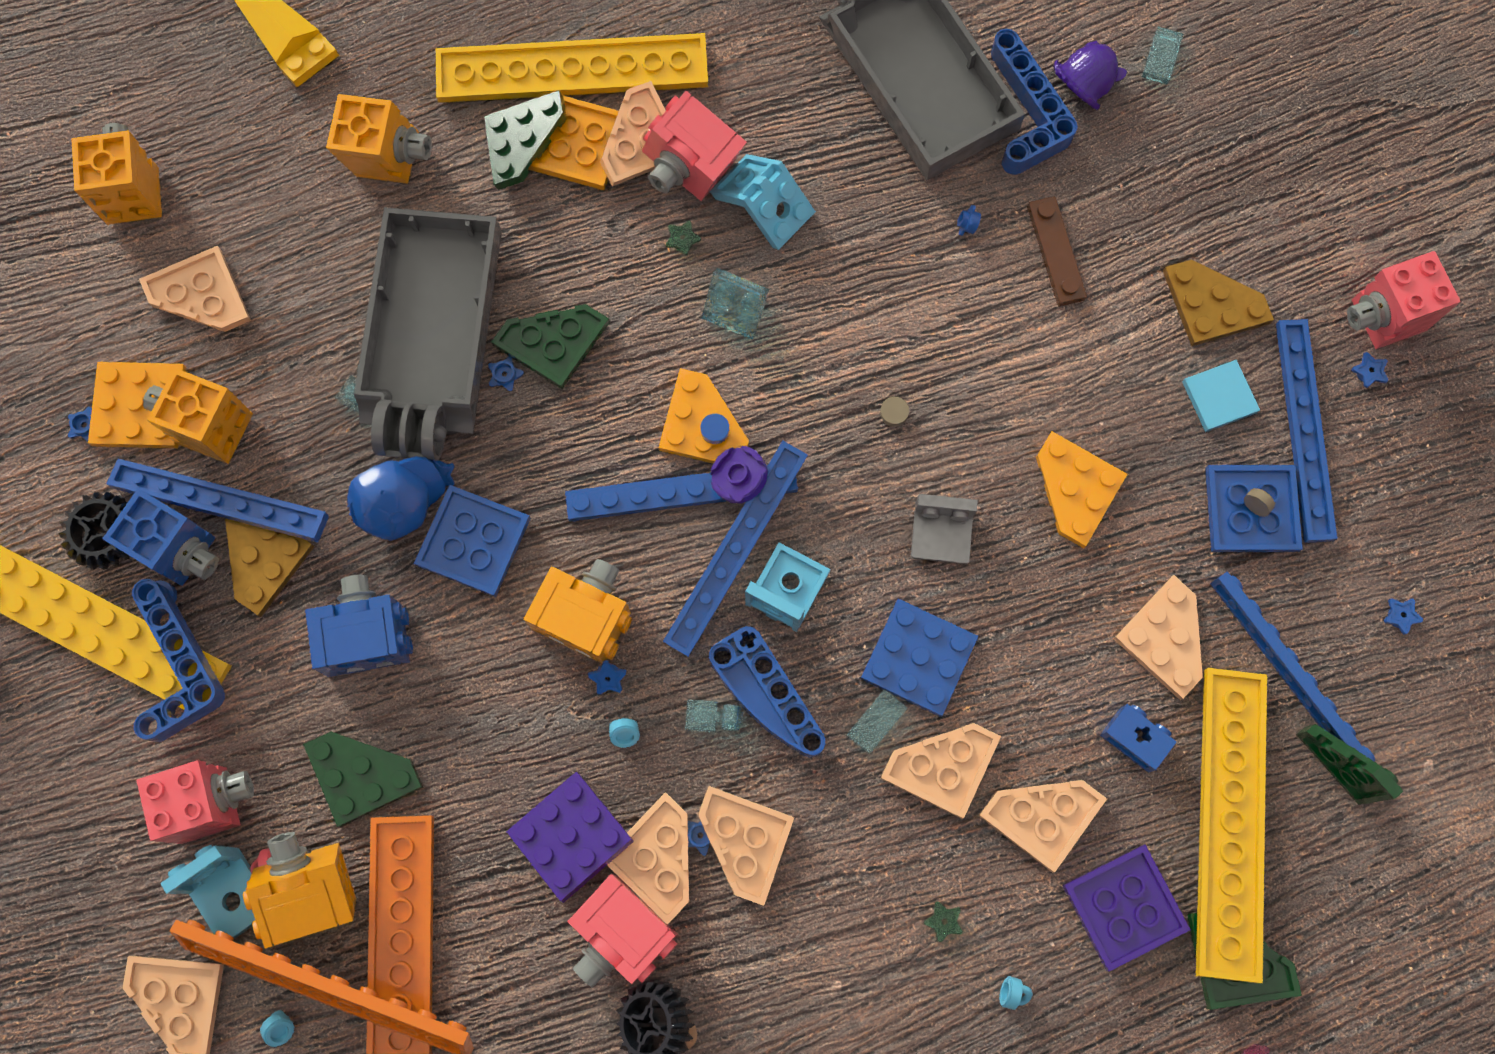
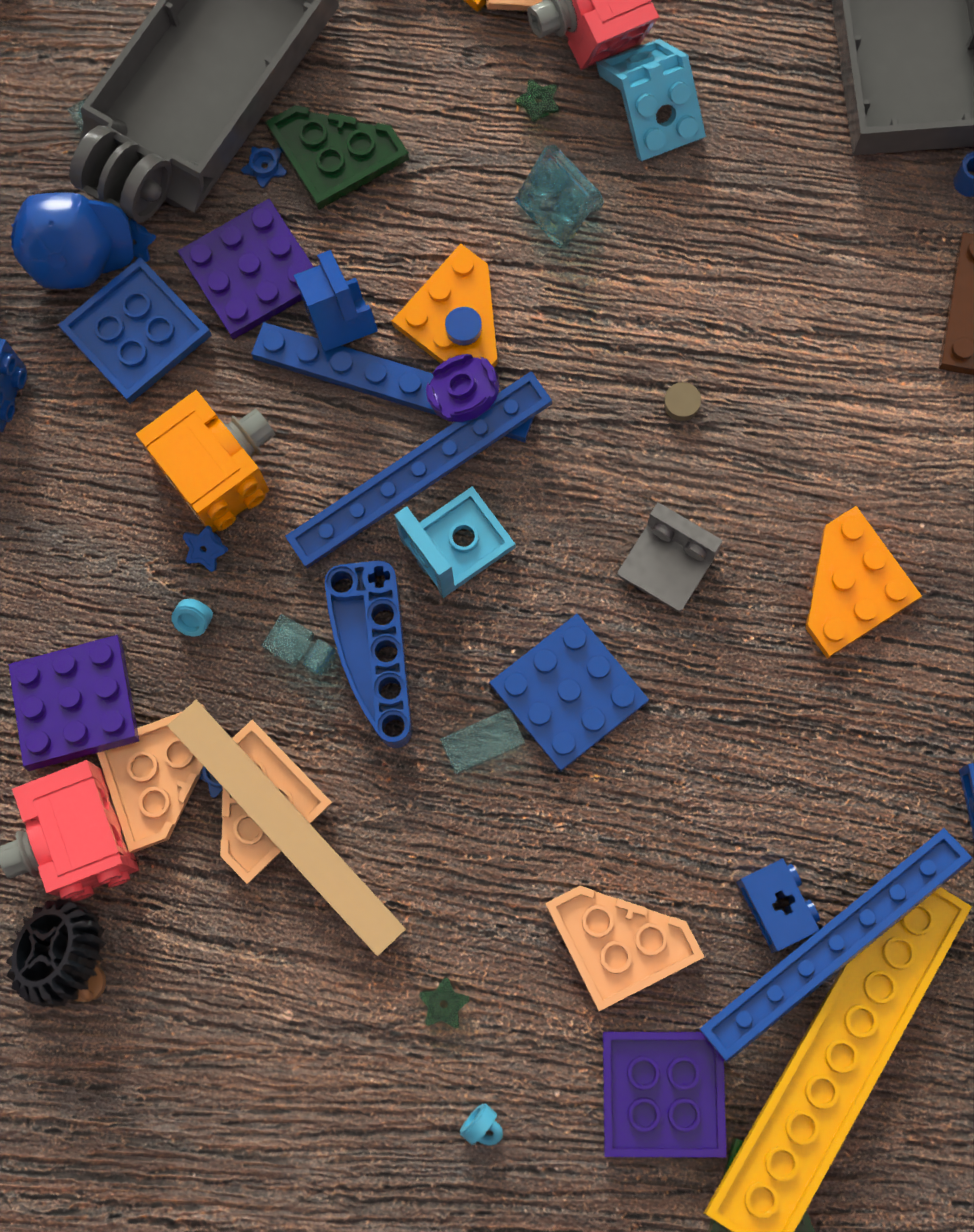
camera: 30 degrees right, 0 degrees up
(534, 455) = (248, 268): none -> dark purple plate
(613, 455) = (334, 304): none -> blue plate
(772, 851) = (287, 827): none -> tan tile
(944, 767) = (532, 829): light nougat plate -> none
(968, 221) = (880, 222): blue plate -> none
(1167, 637) = (873, 807): light nougat plate -> none
(1192, 747) = (835, 945): none -> blue plate

